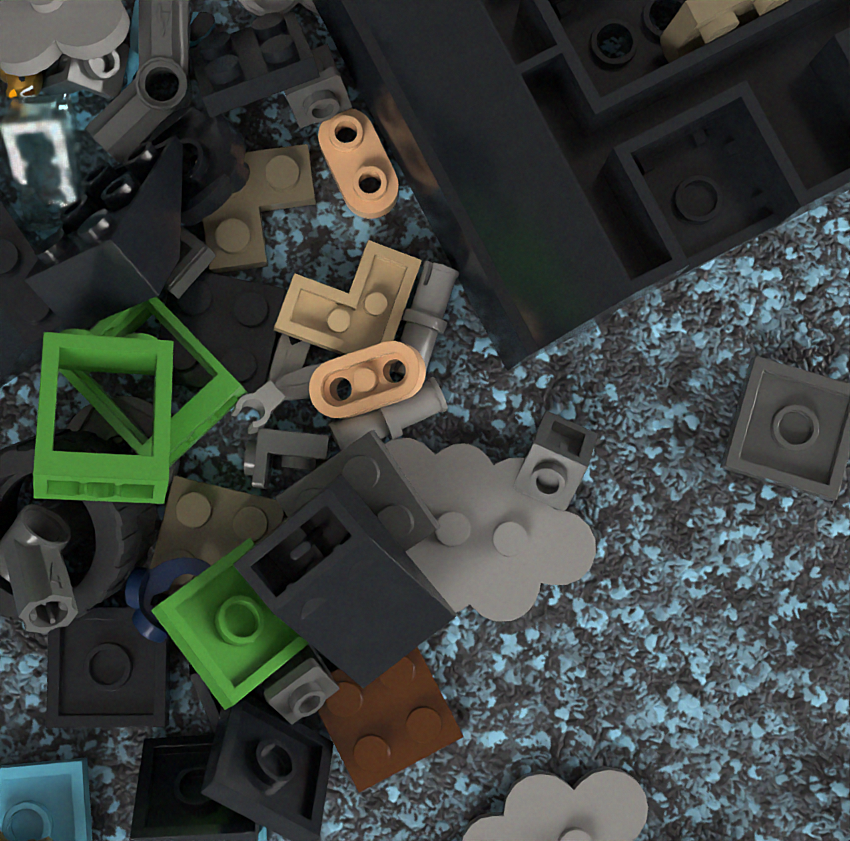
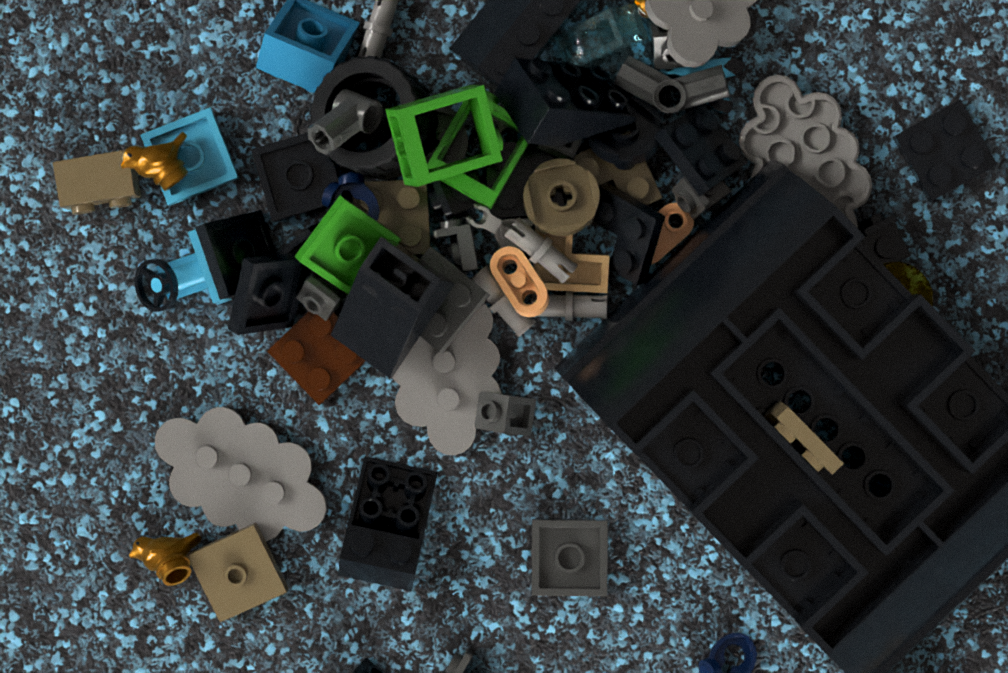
camera: 75 degrees right, 5 degrees up
(215, 450) = (450, 200): none -> black bracket
(283, 305) = (574, 180): none -> dark tan plate
(330, 334) = (540, 250): none -> light grey pin
(336, 188) = (637, 232): none -> black plate
(671, 684) = (387, 523): none -> black slope

